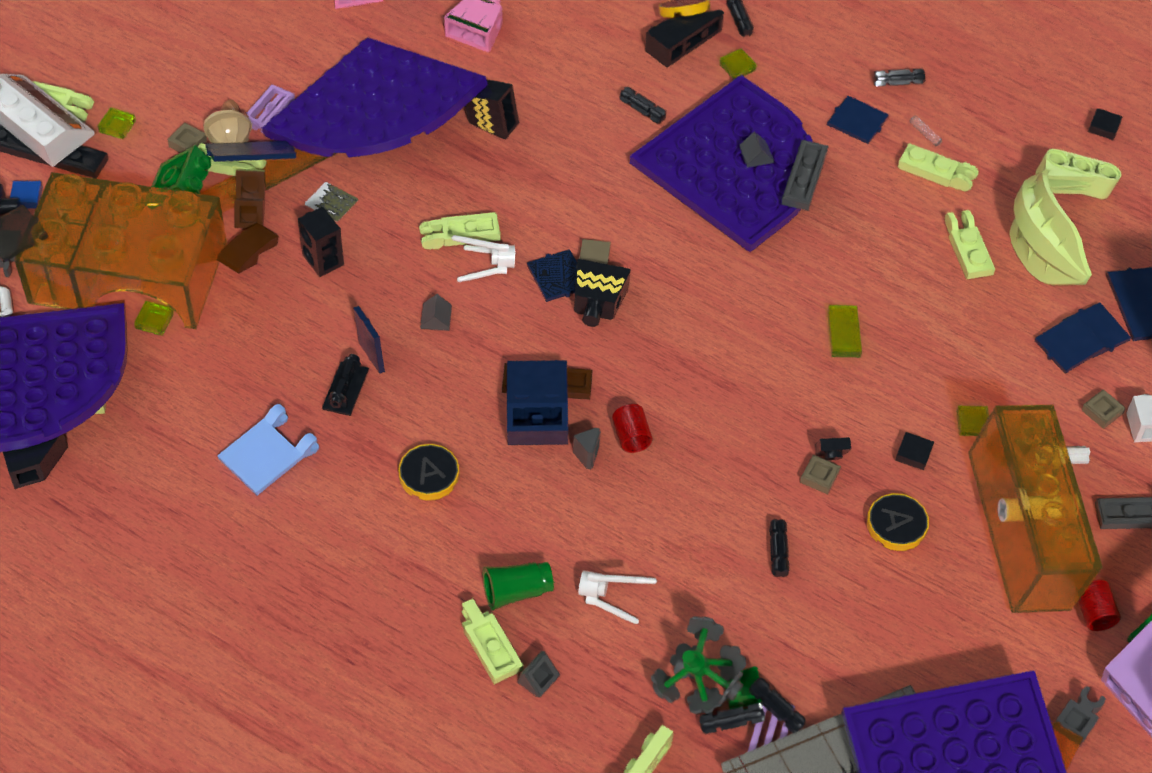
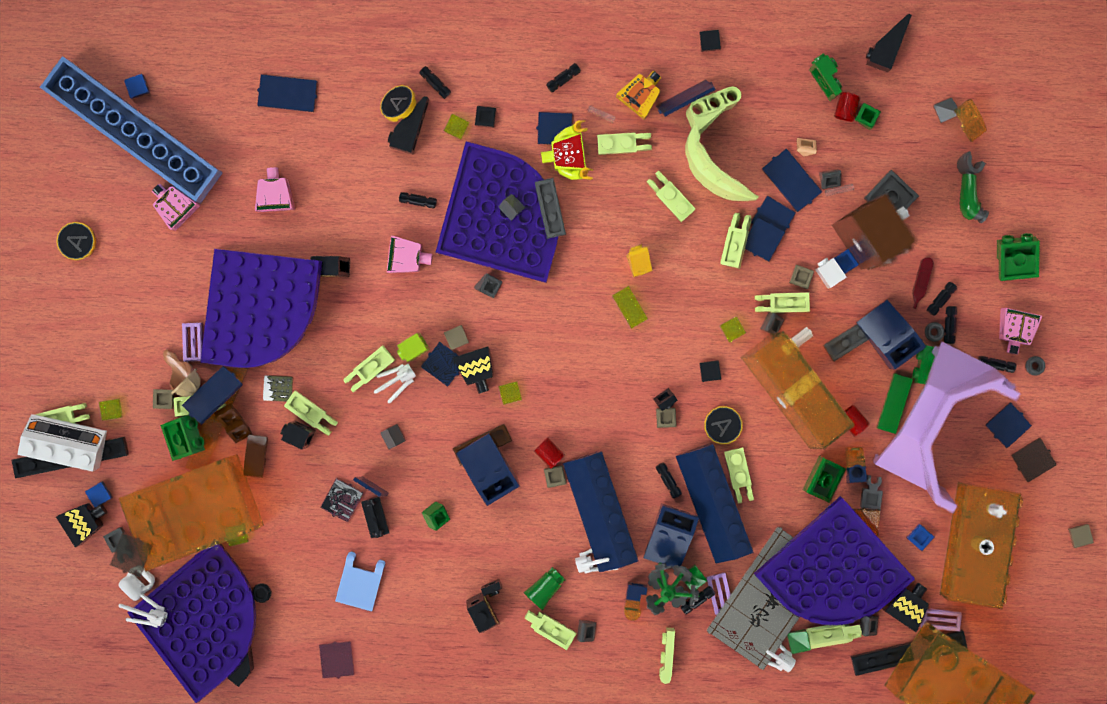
camera: 30 degrees left, 35 degrees up
(130, 394) = (261, 593): none -> black plate
(162, 527) = (336, 659): none -> clear purple piece
(317, 351) = (342, 500): none -> piece
(354, 238) = (309, 412): none -> yellowish green hinge
(406, 558) = (481, 613): none -> black torso
(427, 426) = (435, 516): none -> green slope
(429, 471) = (454, 543): black tile -> none
(441, 544) = (492, 588): none -> black plate
(534, 224) = (412, 348): none -> lime brick
(587, 446) = (532, 480): dark grey slope -> none
(589, 145) = (406, 256): none -> bright pink torso
(620, 465) = (555, 476): none -> dark tan tile
(623, 344) = (510, 393): none -> clear neon green tile
(635, 666) = (632, 600): none -> leg
(658, 531) = (600, 511): none -> dark blue slope
(673, 223) = (488, 285): none -> dark grey slope
(748, 605) = (671, 536): none -> dark blue slope
(777, 705) = (718, 584): black axle -> none
(779, 71) = (485, 116): none -> black tile
(830, 608) = (714, 504): none -> dark blue slope
(863, 138) = (568, 153): none -> torso
(888, 590) = (738, 472): none -> yellowish green hinge
(890, 268) = (639, 260): none -> yellow slope
(987, 129) = (640, 94): none -> torso
(1014, 650) = (824, 479): none -> green slope
(1031, 325) = (736, 242): none -> yellowish green hinge
(1036, 150) = (685, 97): none -> piece
(1071, 667) = (855, 465): none -> leg
(1074, 425) = (784, 302): none -> yellowish green hinge

